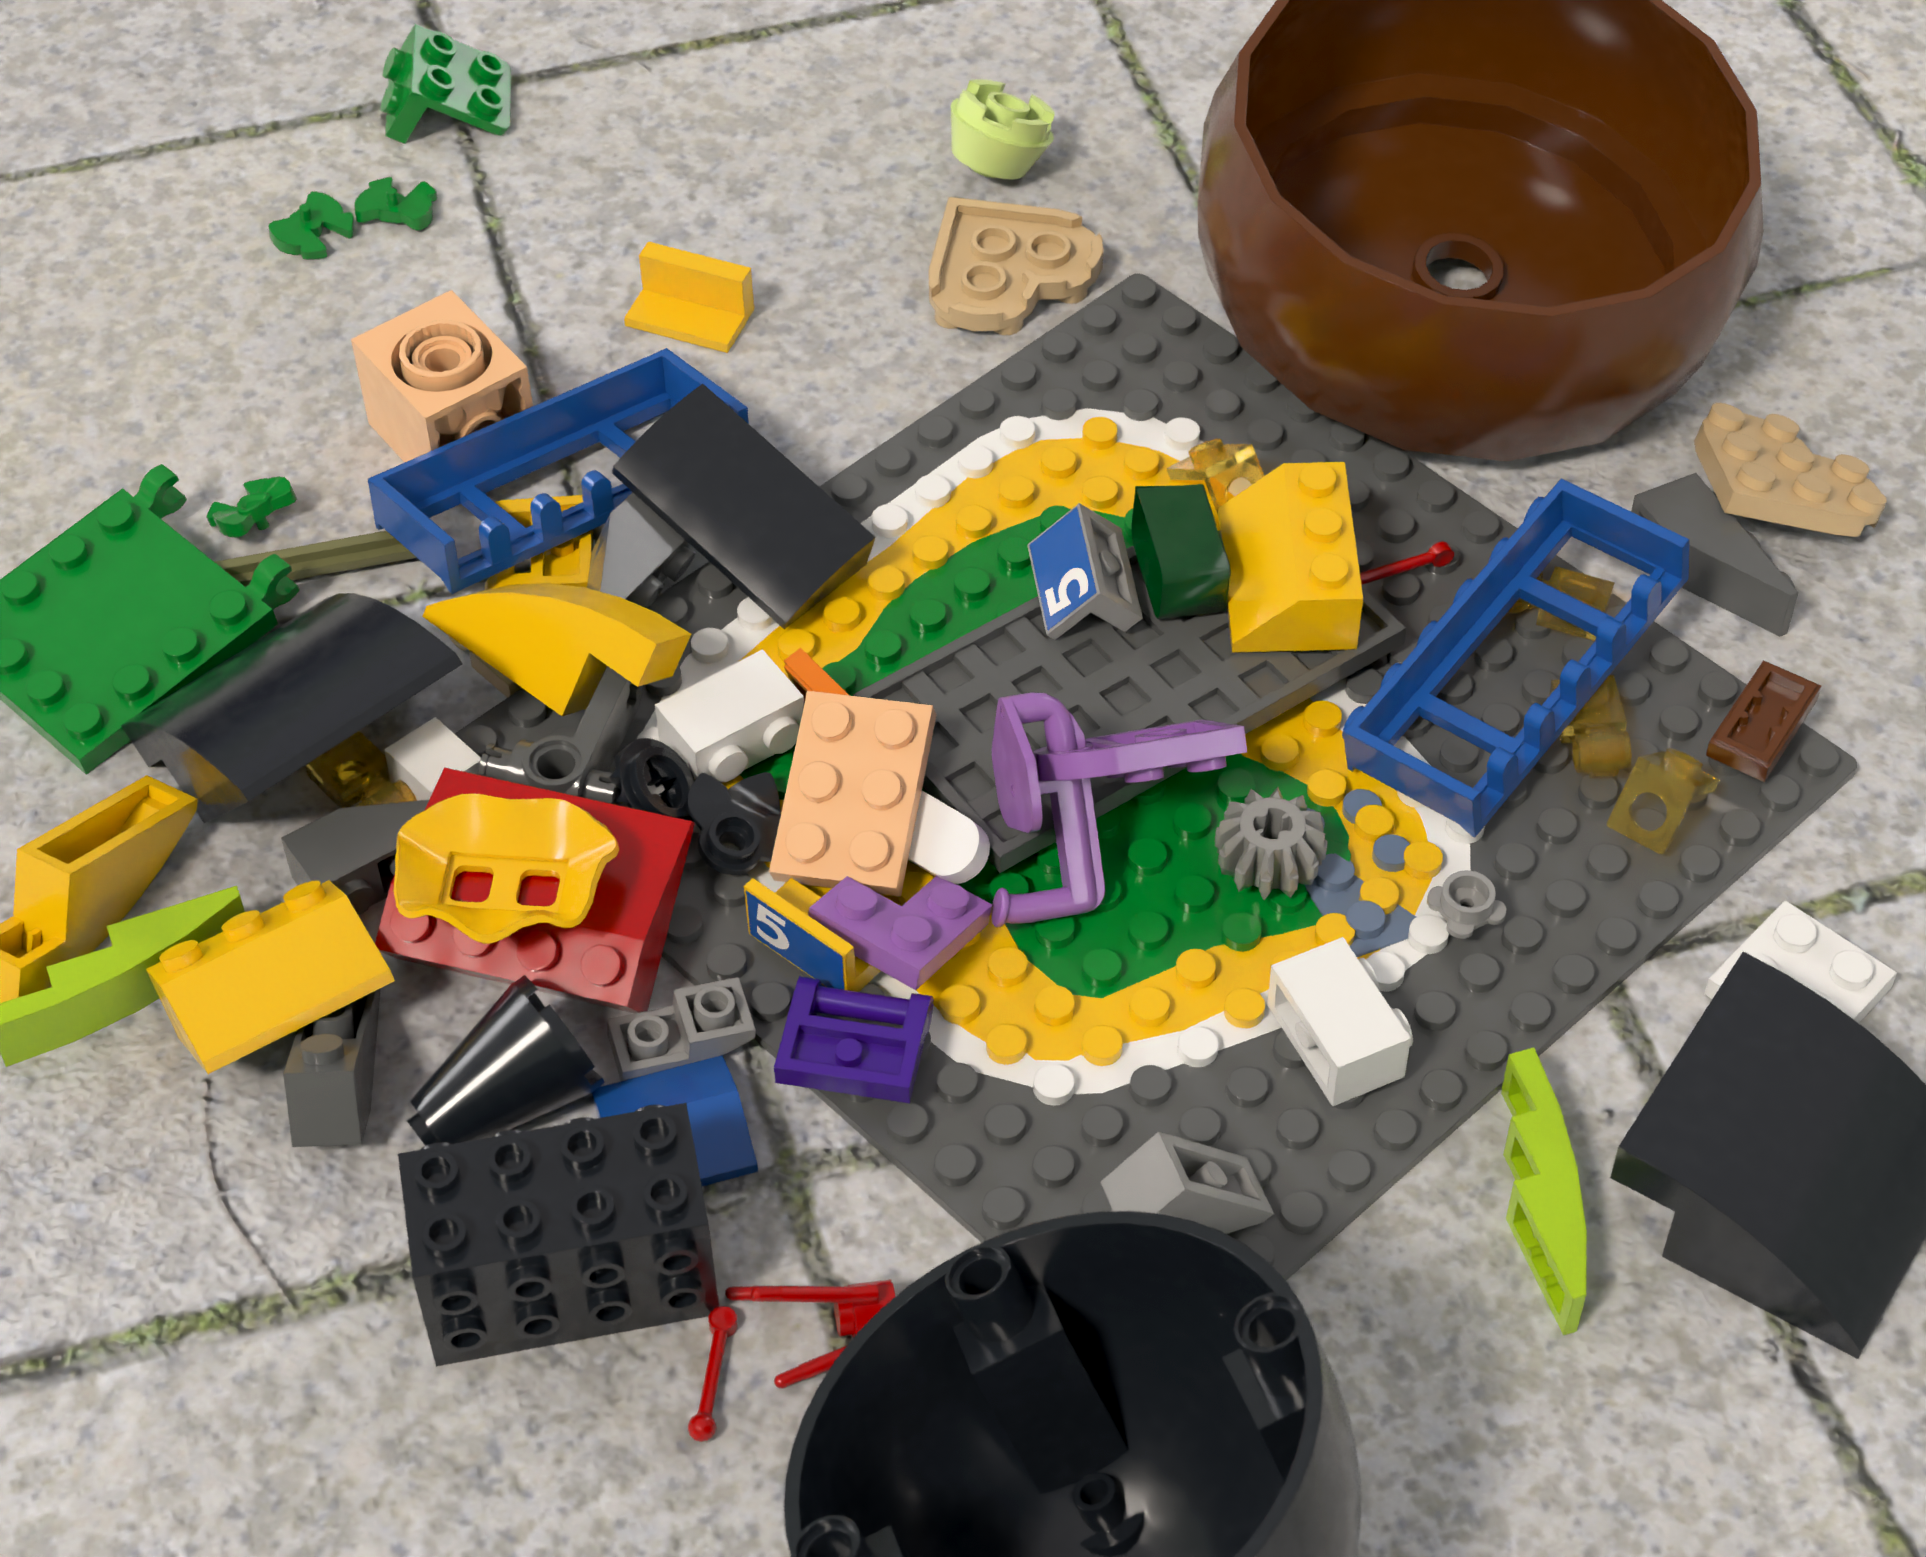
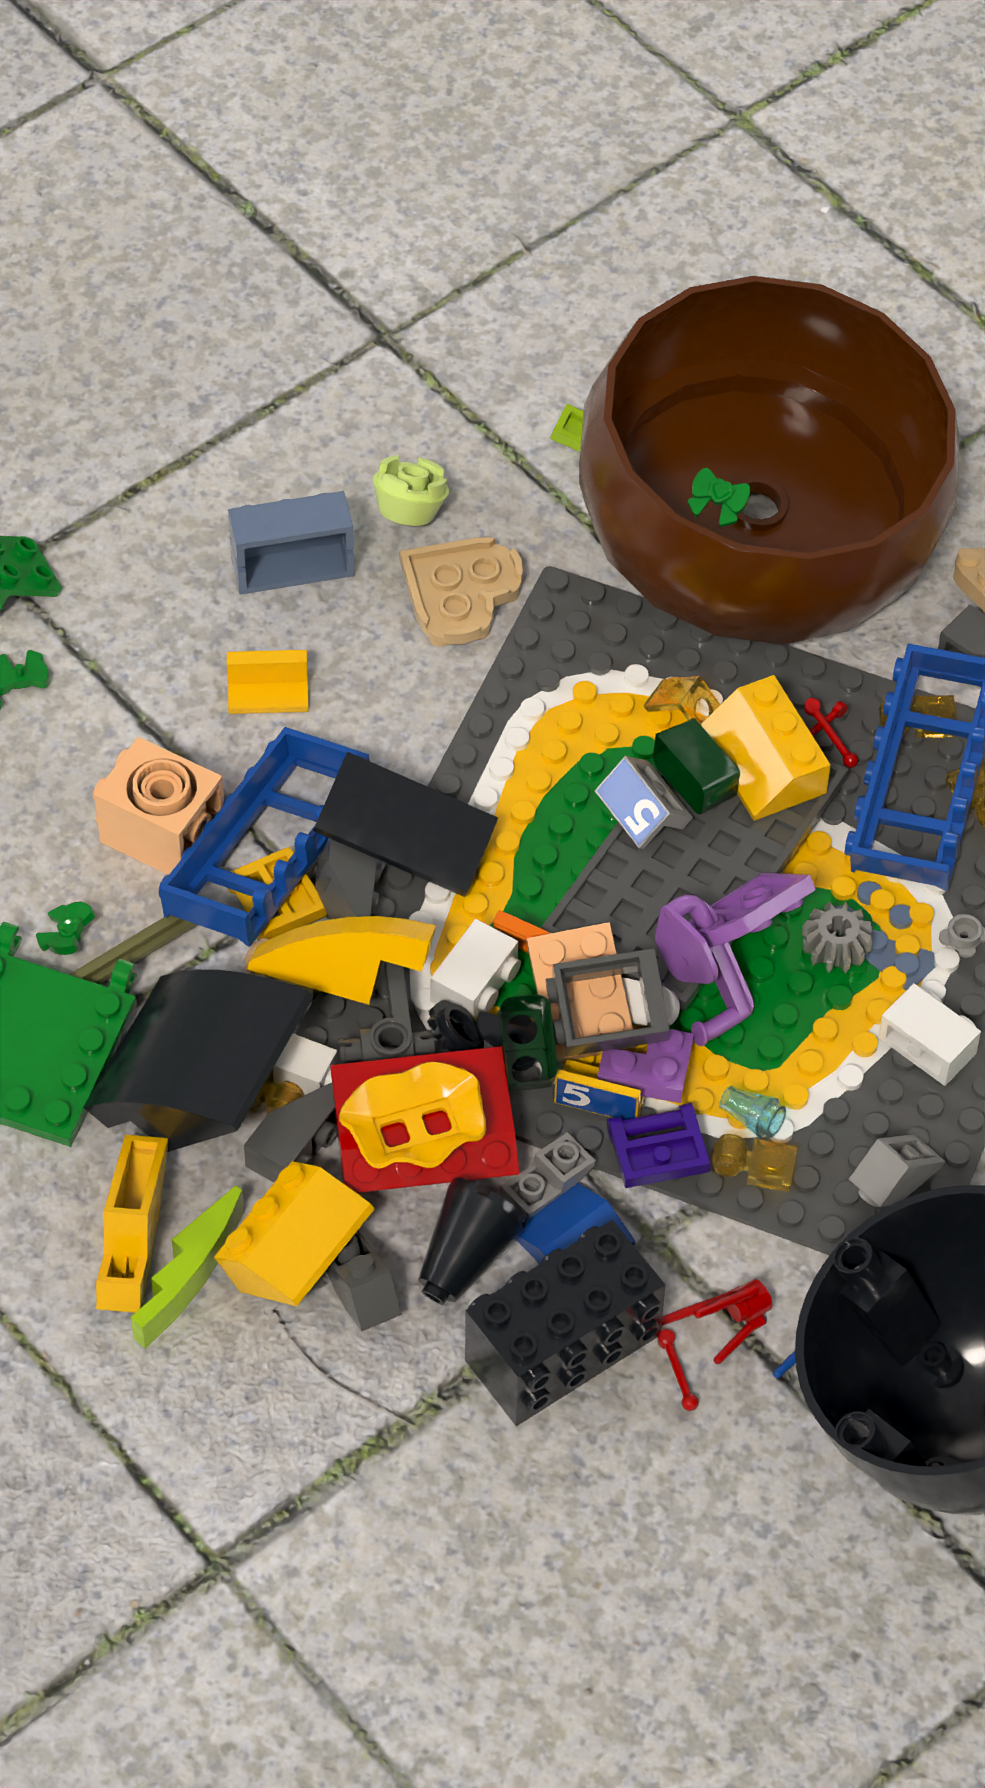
camera: 25 degrees left, 5 degrees up
(690, 850) = (540, 1011): none -> dark green piece
(809, 143) = (291, 542): none -> sand blue piece
(933, 824) = (637, 961): none -> dark grey window
(997, 1124) = (768, 1164): none -> clear yellow plate
(1021, 1041) = (755, 1111): none -> clear light blue cone
(1335, 168) = (721, 492): none -> green piece
(1398, 536) = (812, 708): none -> red hinge

